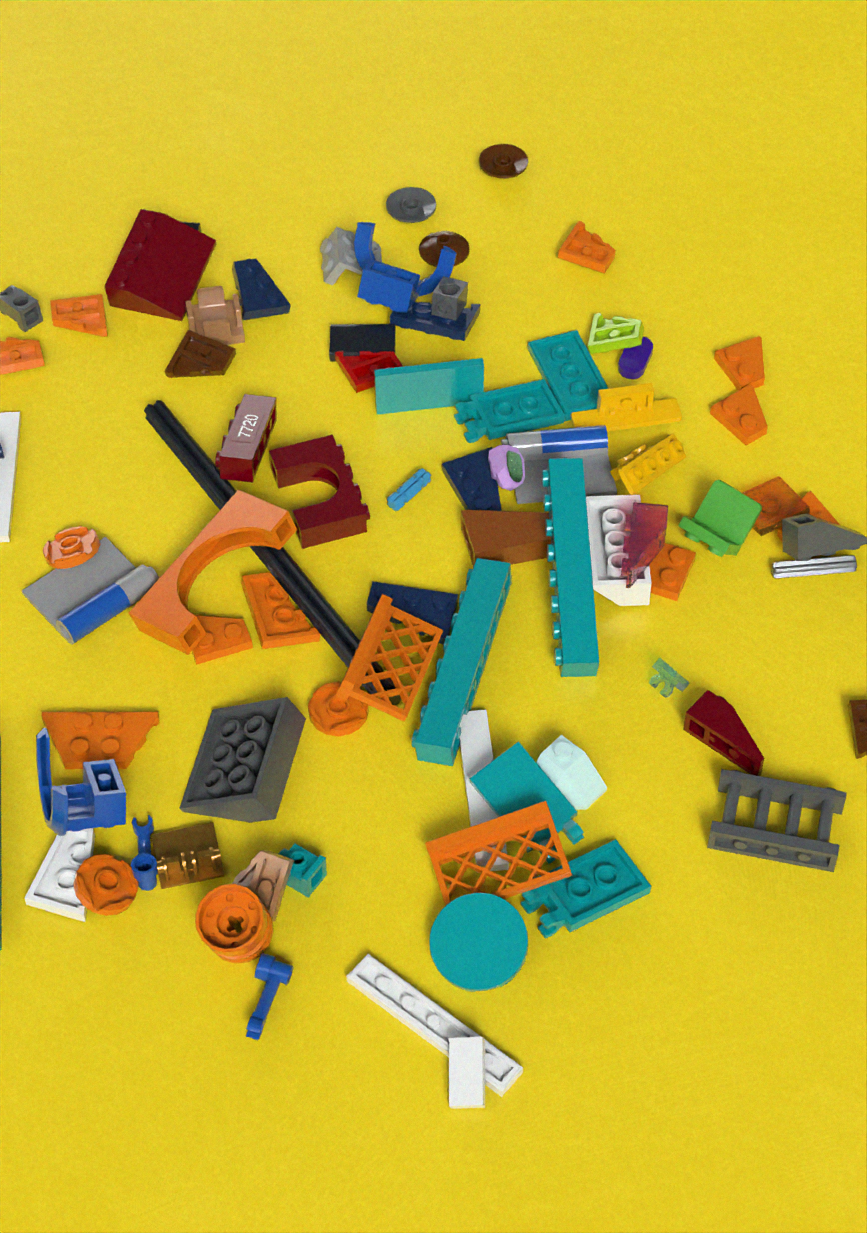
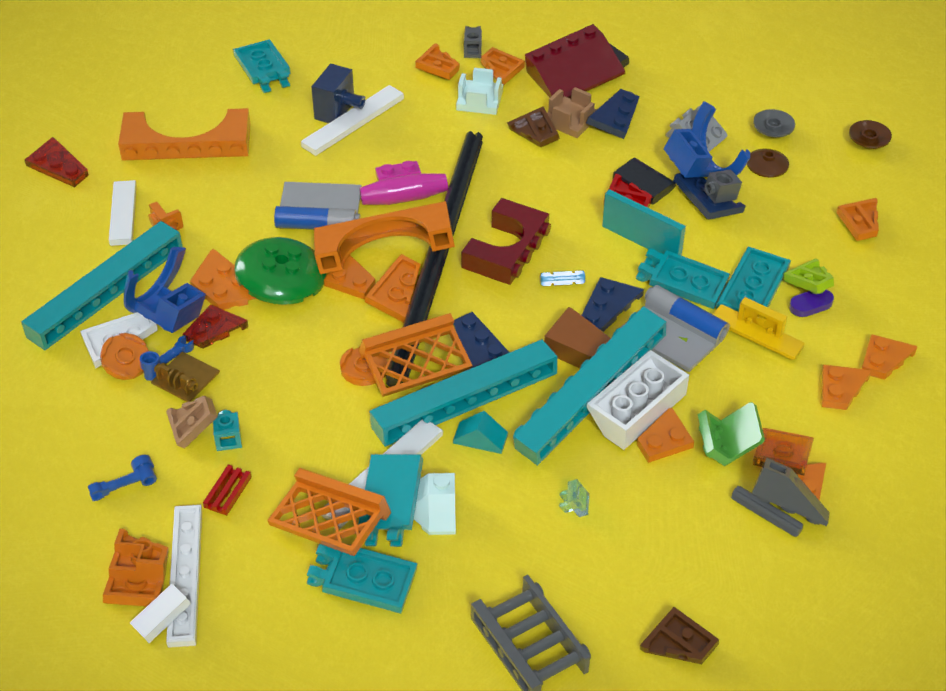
camera: 45 degrees right, 5 degrees down
(71, 547) = (336, 179): orange tile -> none
(98, 360) = (479, 94): none -> light aqua panel
(142, 682) = (279, 270): none -> green brick
(145, 507) = (402, 184): none -> dark pink plate
(147, 786) = (212, 326): none -> clear red wing
(225, 908) = (147, 424): orange wheel -> none
(244, 761) = (276, 352): dark grey slope -> none
(247, 438) = (499, 182): brick -> none
(362, 899) = (224, 486): none -> red tile
(390, 1060) = (135, 571): none -> orange slope
(478, 942) = (260, 549): teal tile -> none
(506, 466) = (631, 301): lavender rock -> none
(520, 686) = (481, 433): none -> teal slope
(646, 538) = (649, 399): clear pink slope -> none
(648, 463) = (726, 364): yellow bracket -> none
(721, 729) = (568, 554): dark red slope -> none

